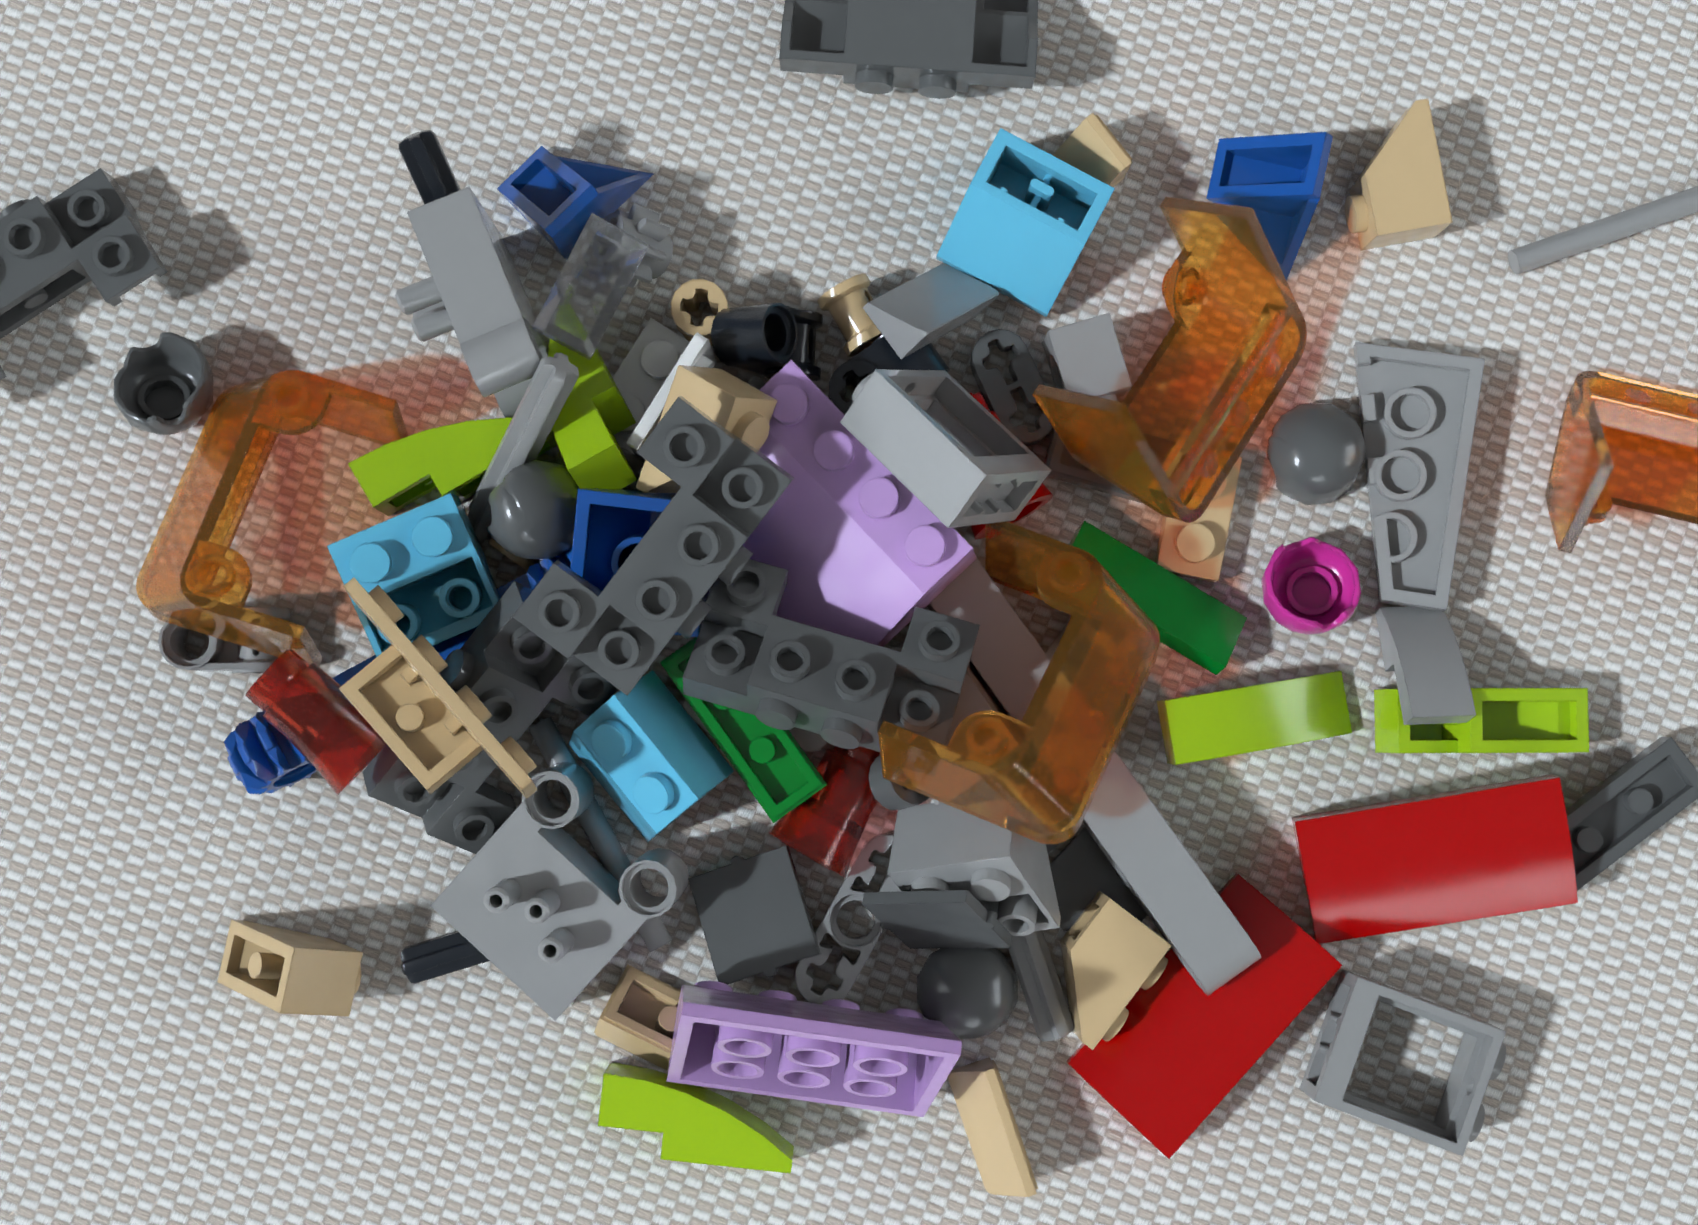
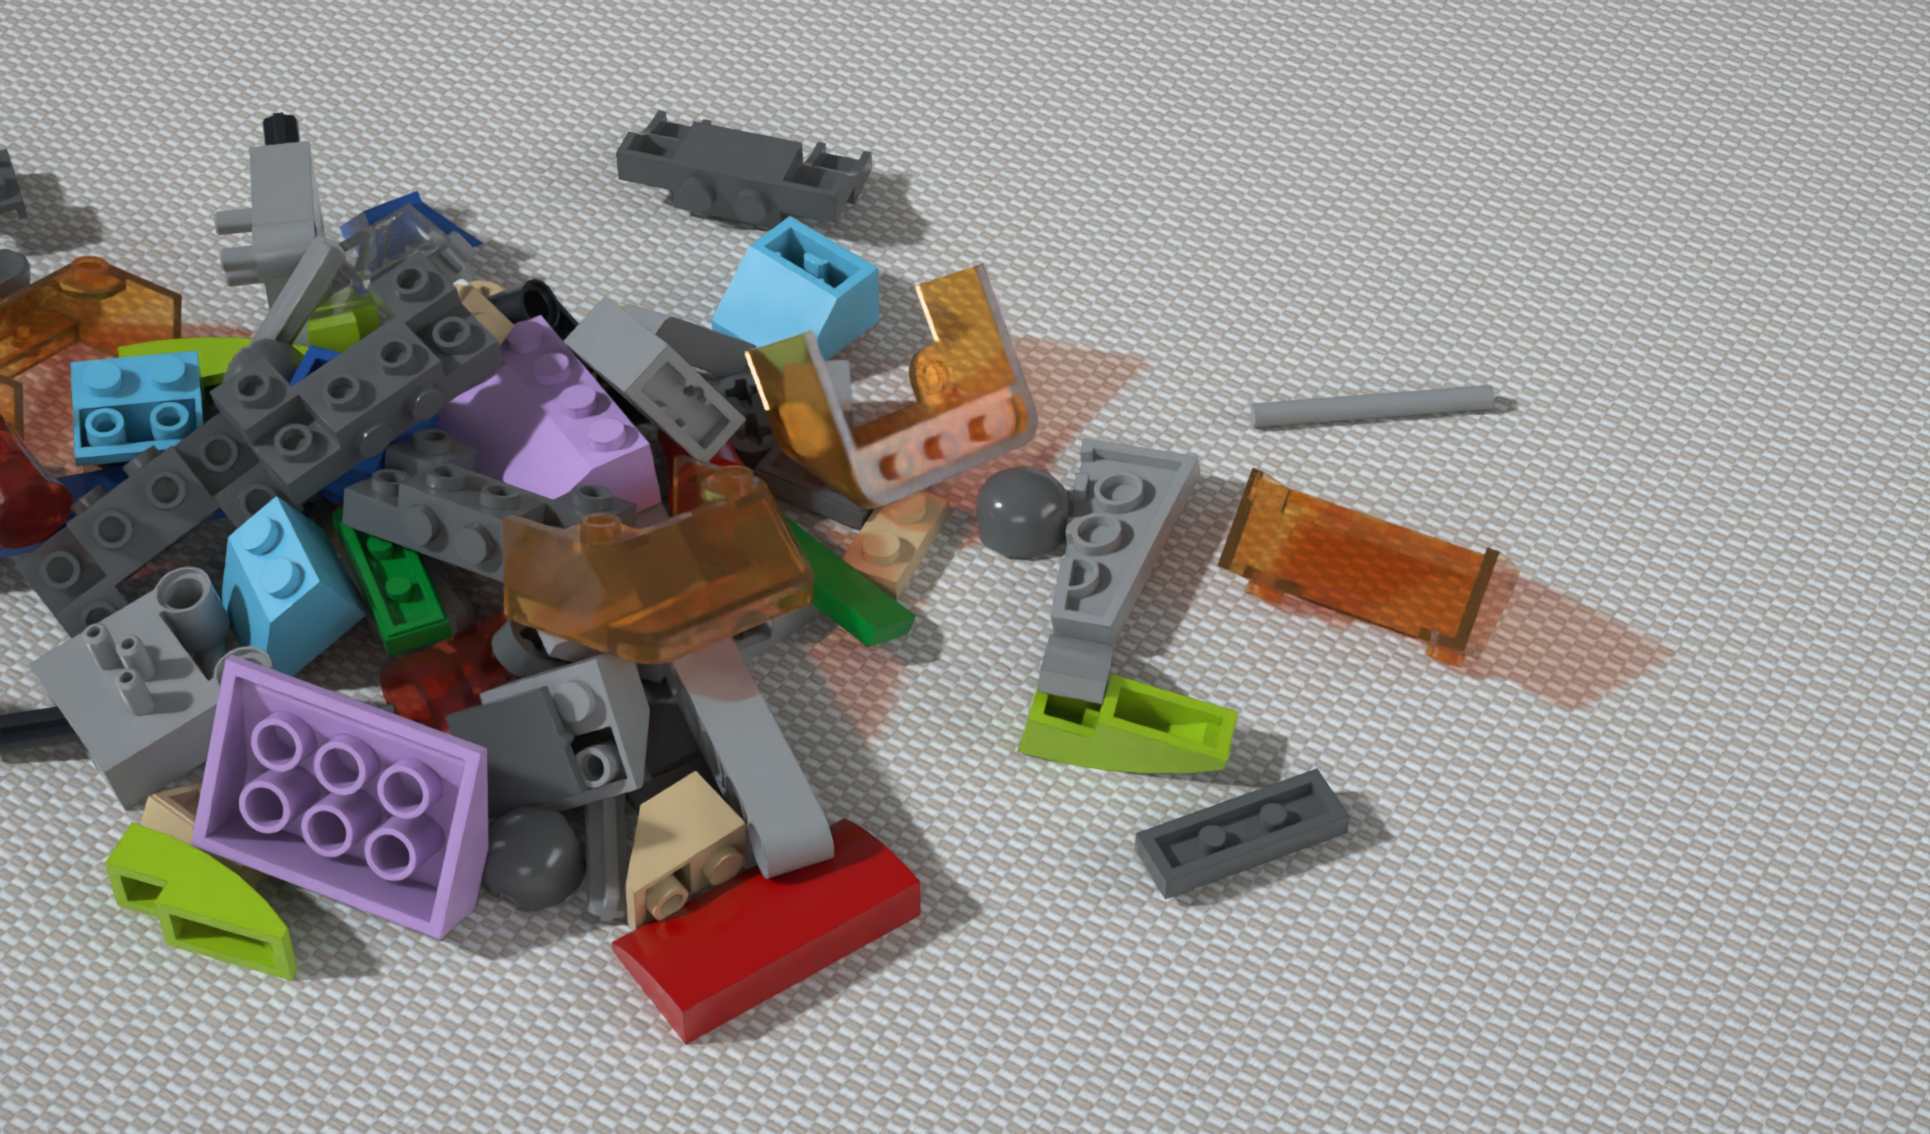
camera: 15 degrees right, 40 degrees down
(417, 709) = (101, 457): tan bracket -> none
(992, 1129) = (511, 976): tan slope -> none
(1096, 151) = (891, 275): tan slope -> none
(1254, 717) = (894, 684): lime slope -> none
(1278, 180) = (1045, 320): blue slope -> none
(1310, 586) = (980, 597): dark pink hair -> none
(1340, 1041) = (948, 921): light grey window -> none
(1402, 186) = (1150, 339): tan slope -> none
(1437, 859) = (1045, 818): red slope -> none

